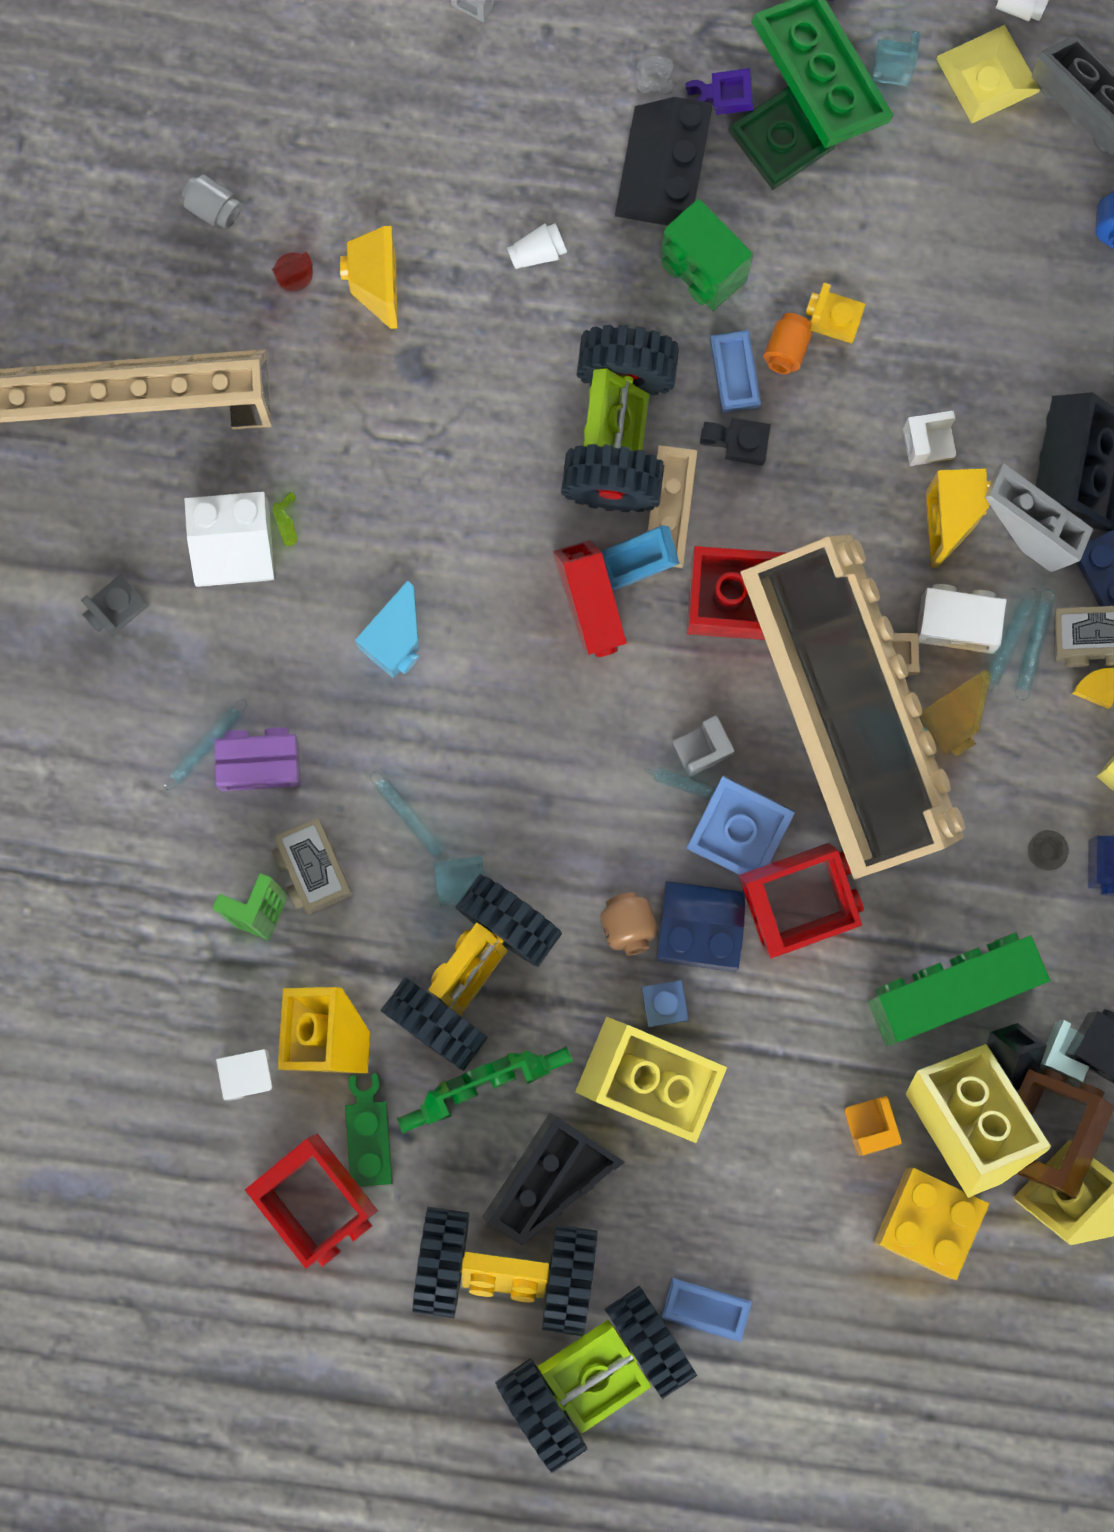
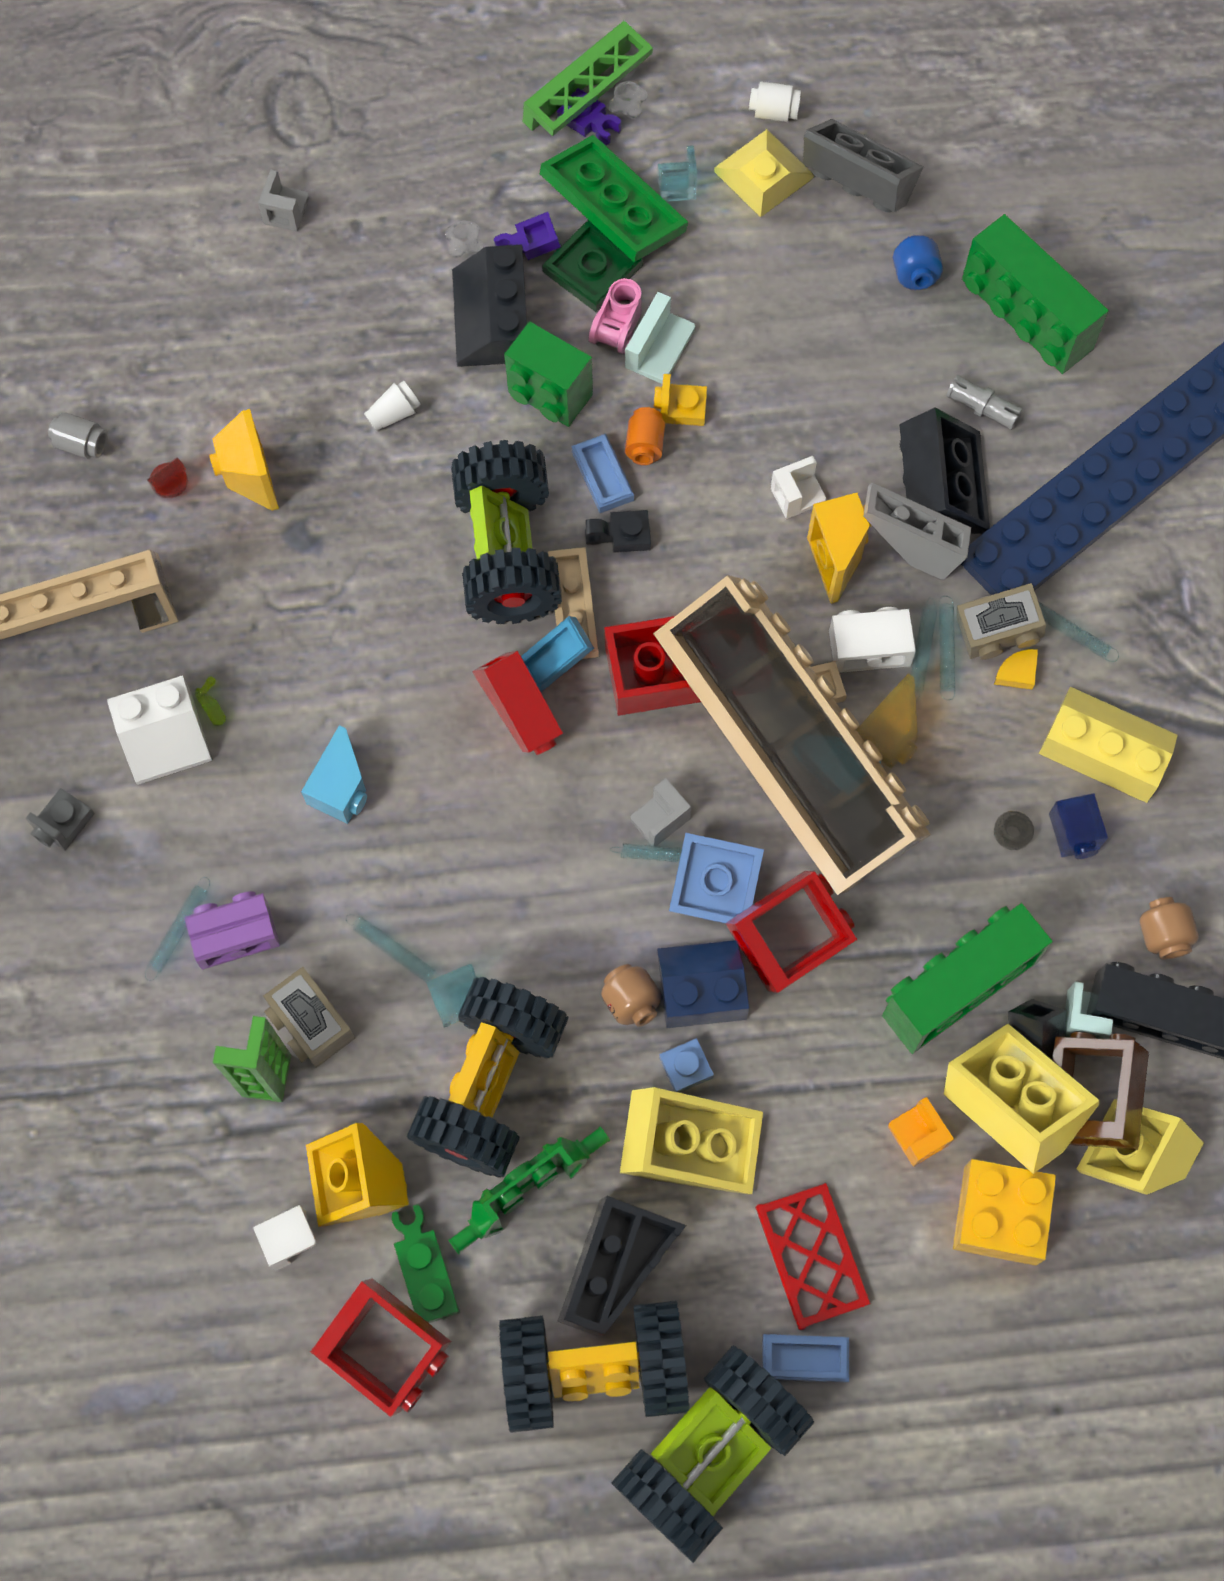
camera: 10 degrees left, 10 degrees down
(767, 1234) = (792, 1285): none -> red window
(789, 209) = (617, 321): none -> bright pink piece
(829, 240) = (658, 340): none -> light aqua panel

